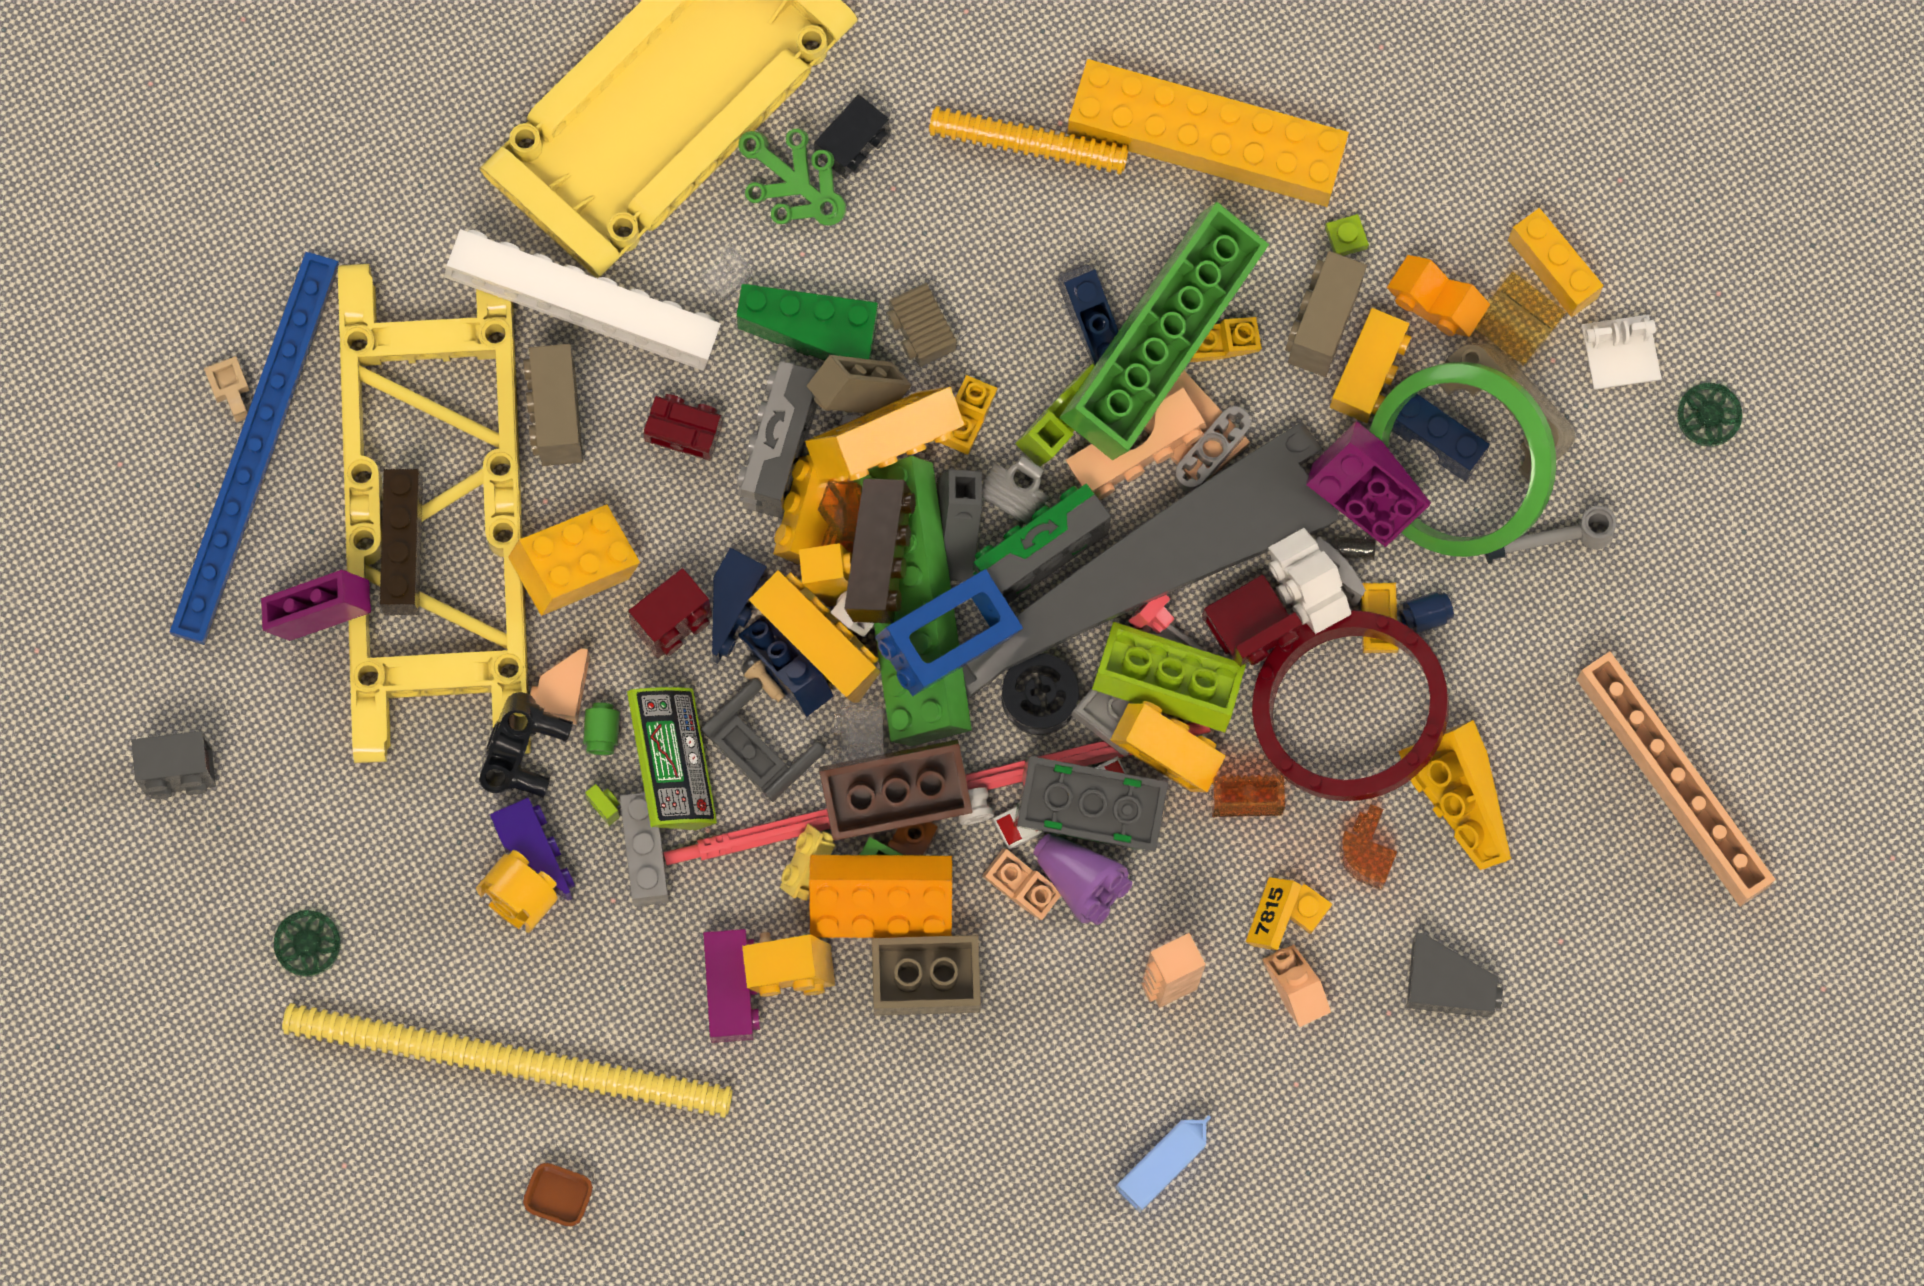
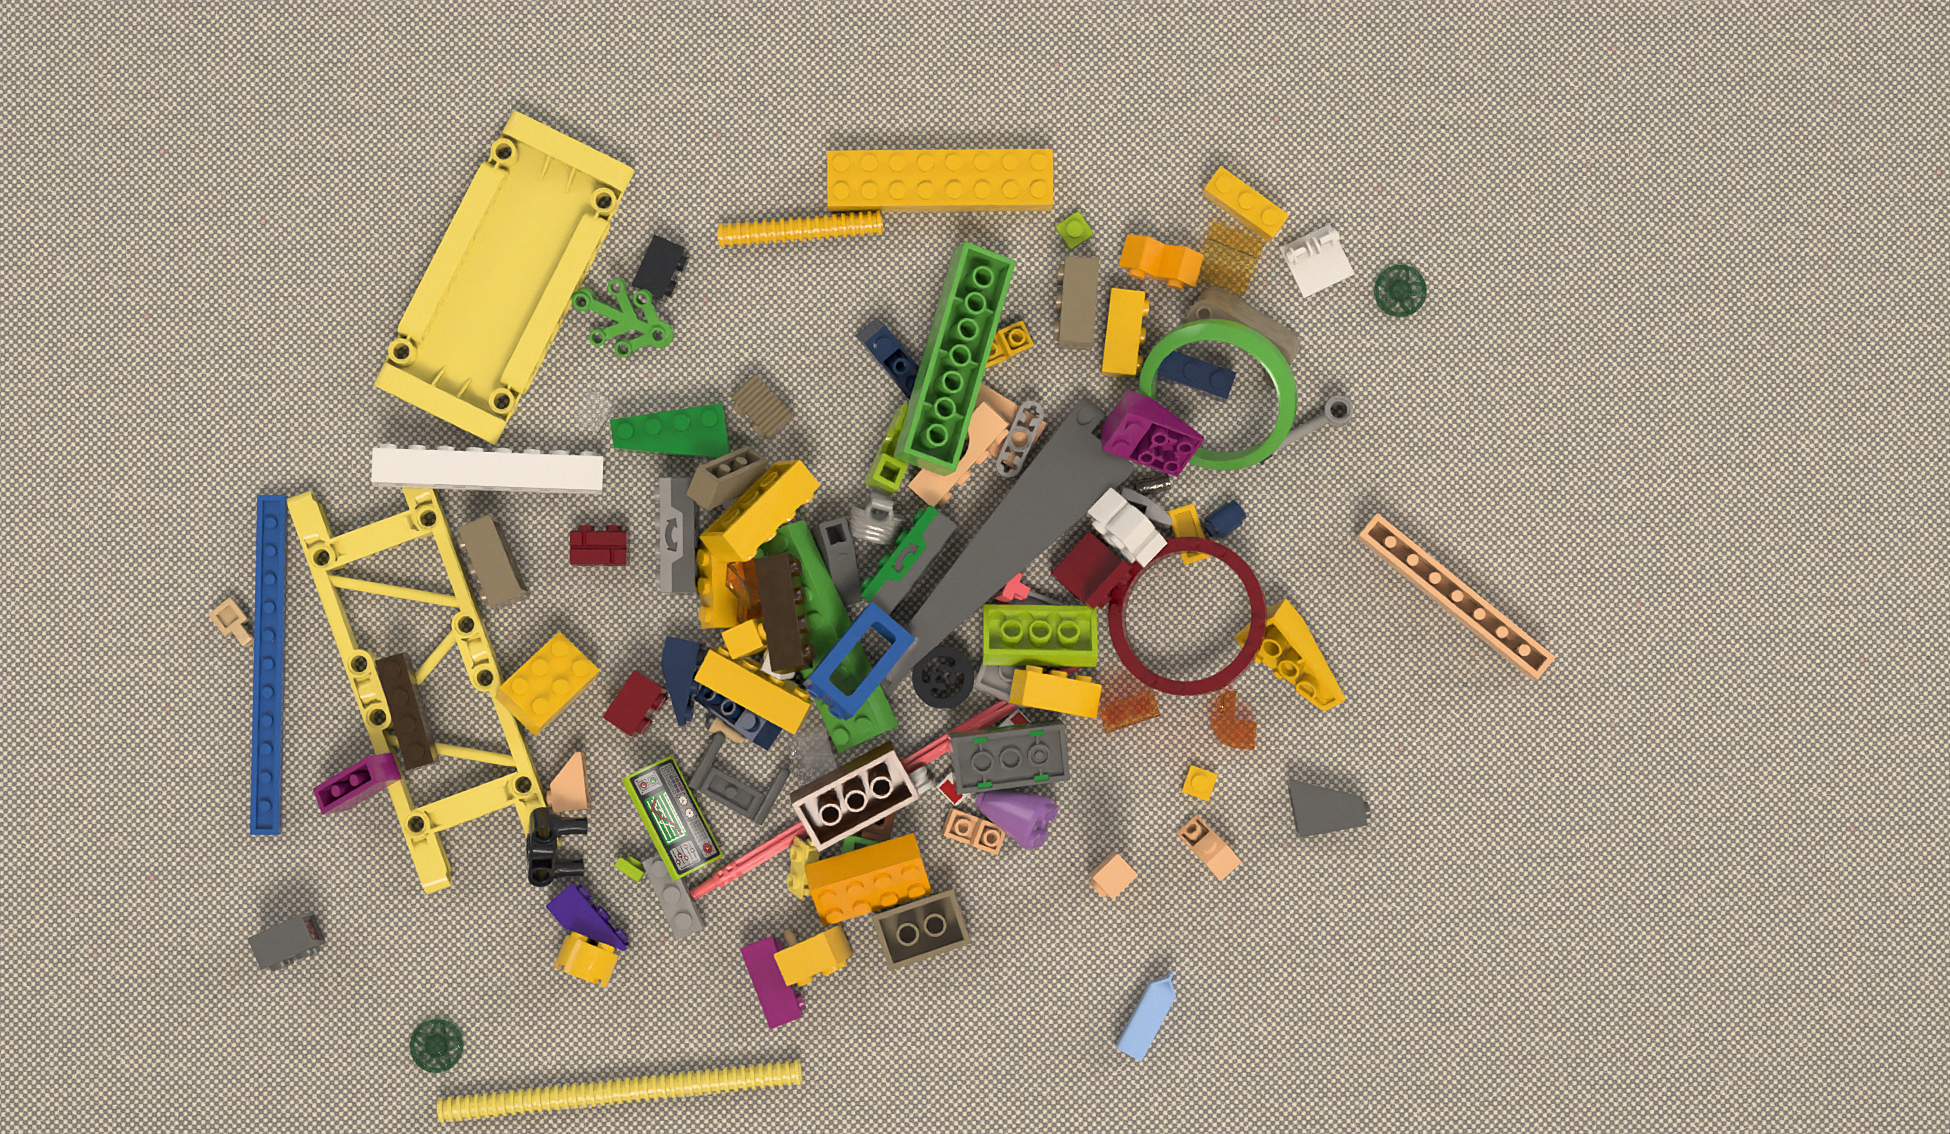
camera: 10 degrees left, 10 degrees up
(601, 729) = (611, 809): bright green brick -> none
(974, 404) = (820, 463): yellow slope -> none
(1273, 913) = (1174, 796): yellow tile -> none

